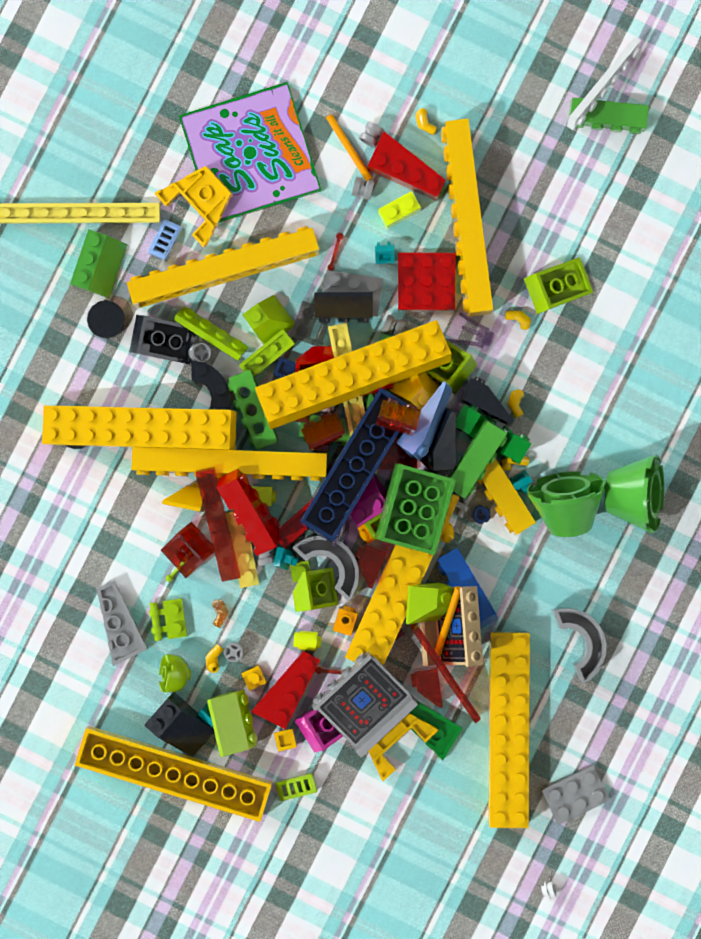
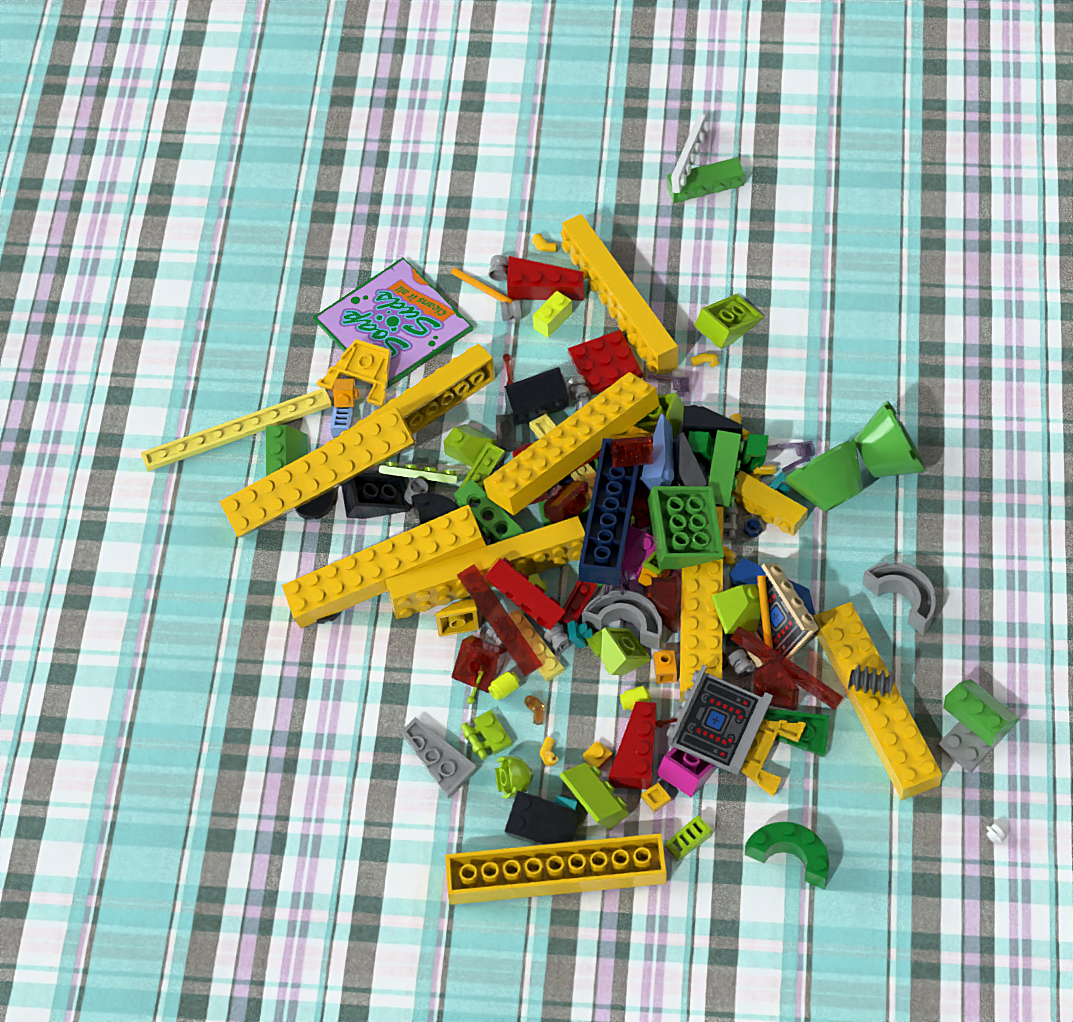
camera: 20 degrees left, 30 degrees down
(114, 311) = (318, 472): none -> yellow brick
(175, 218) = (344, 393): none -> light orange brick
(201, 581) = (504, 685): none -> neon yellow brick
(233, 656) = (564, 732): light grey wheel -> none
(381, 827) = (791, 839): none -> green brick
(384, 254) = (555, 353): teal tile -> none
(388, 307) = (578, 388): none -> light grey wheel
(410, 646) = (741, 664): none -> light grey wheel
(508, 725) = (871, 680): none -> dark grey piece
(563, 454) = (803, 449): none -> clear purple plant
(590, 782) = (979, 711): none -> bright green slope

